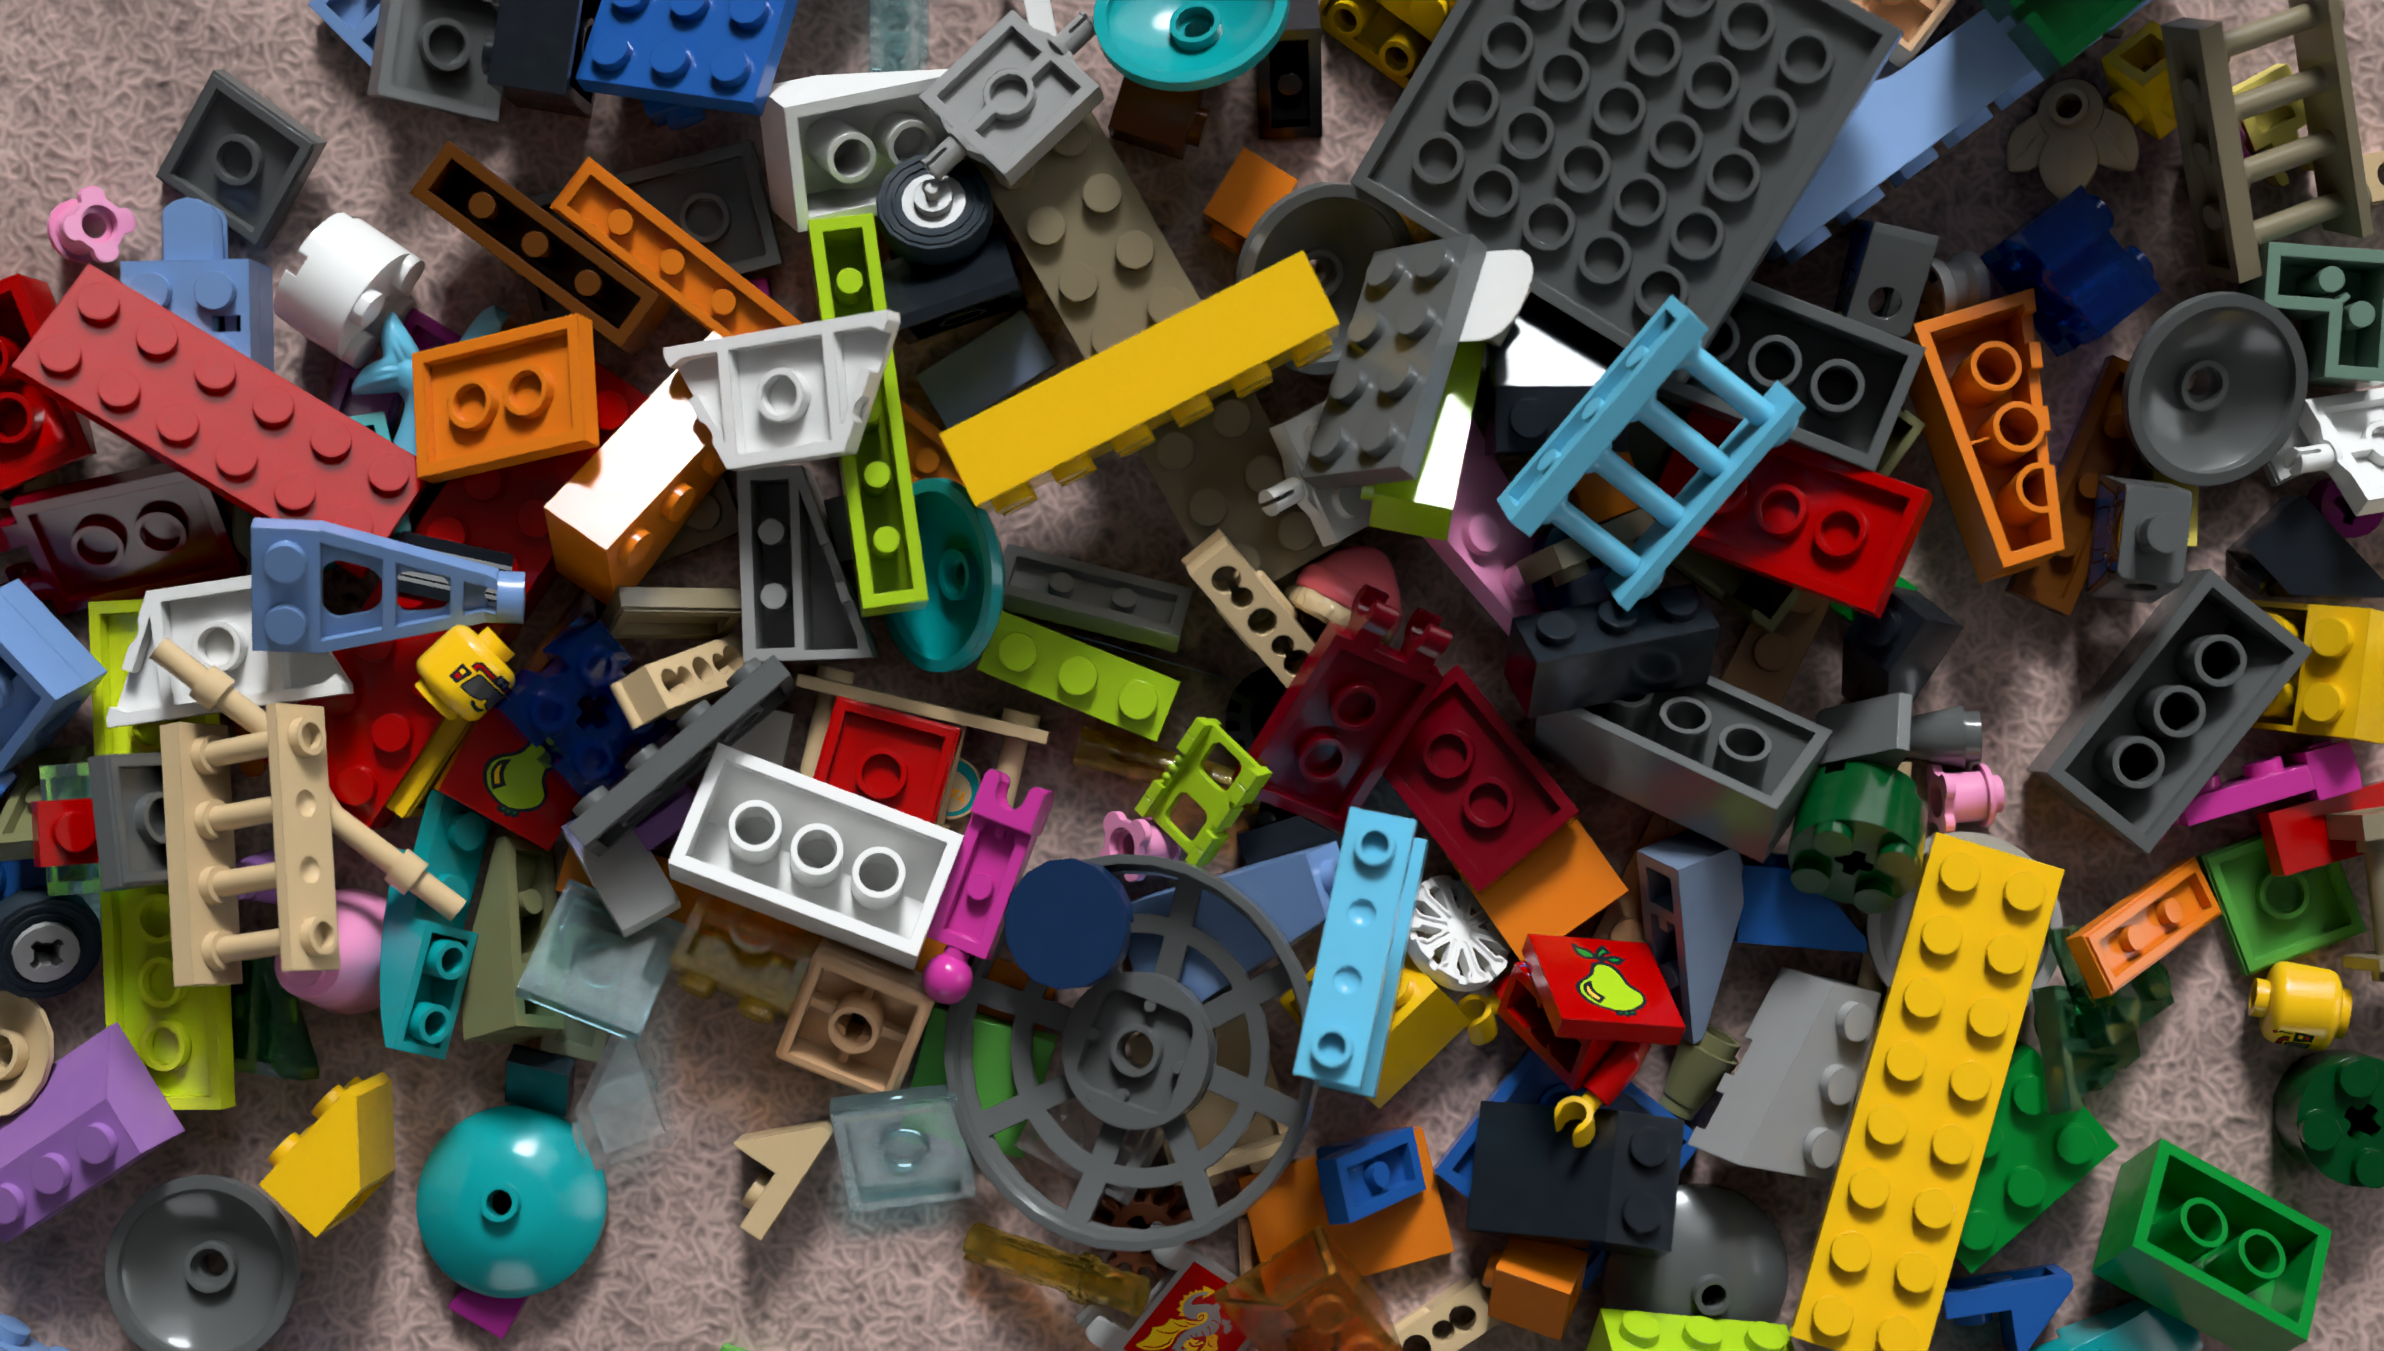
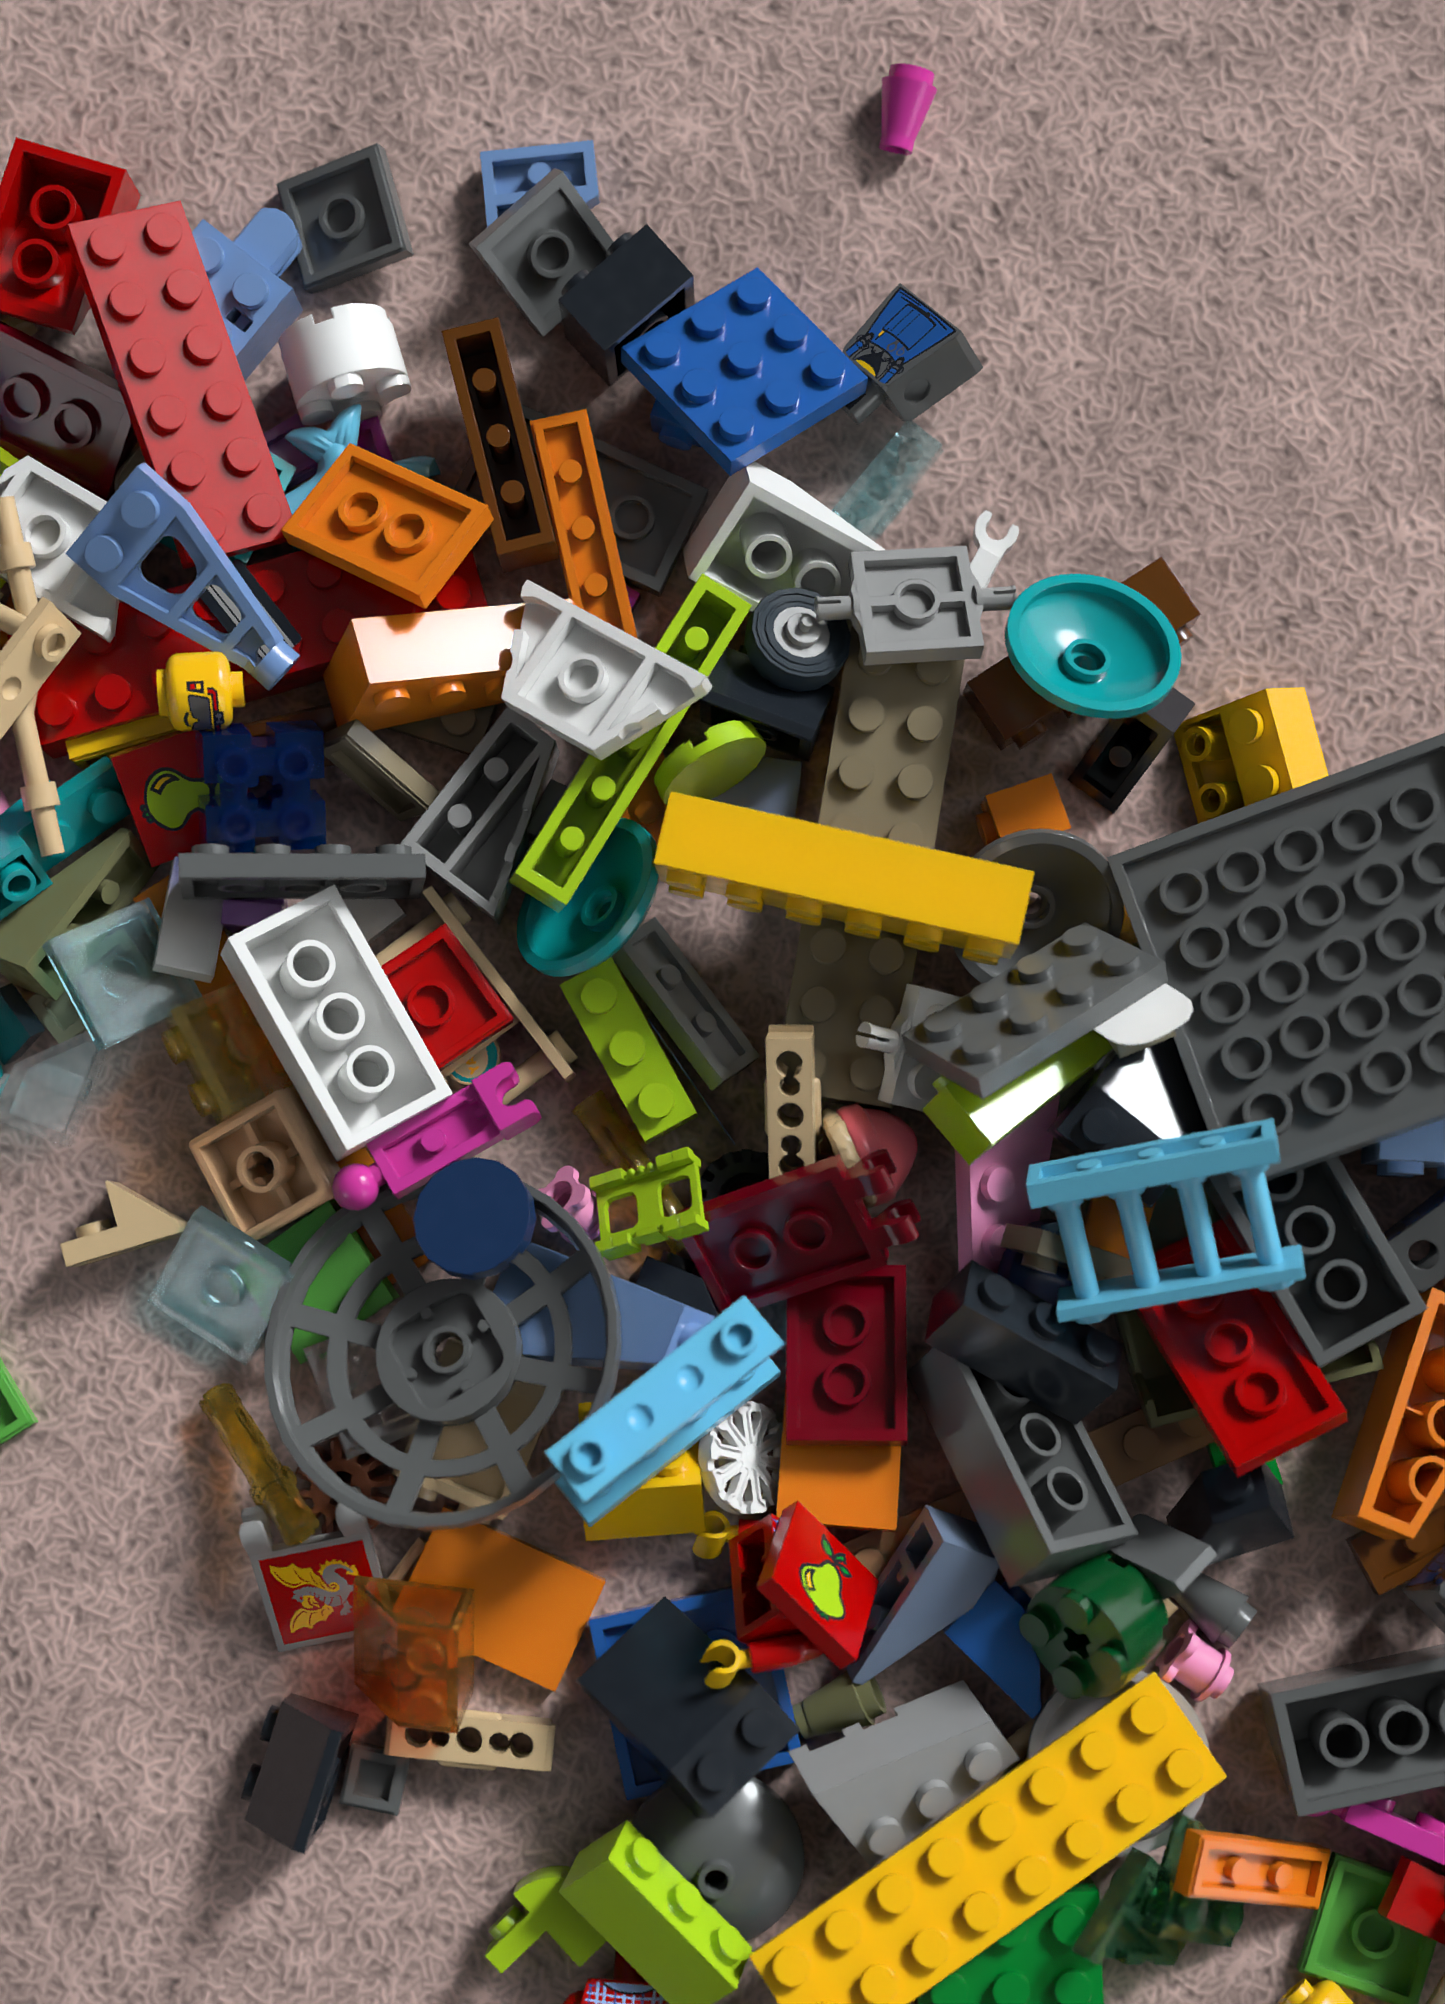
camera: 45 degrees right, 5 degrees down
(89, 227) = (212, 177): bright pink brick -> none
(678, 682) = (341, 819): tan piece -> none
(953, 378) = (713, 765): none -> lime tile
(1368, 1174) = (539, 1581): blue slope -> none
(1535, 1285) = (593, 1764): orange brick -> none

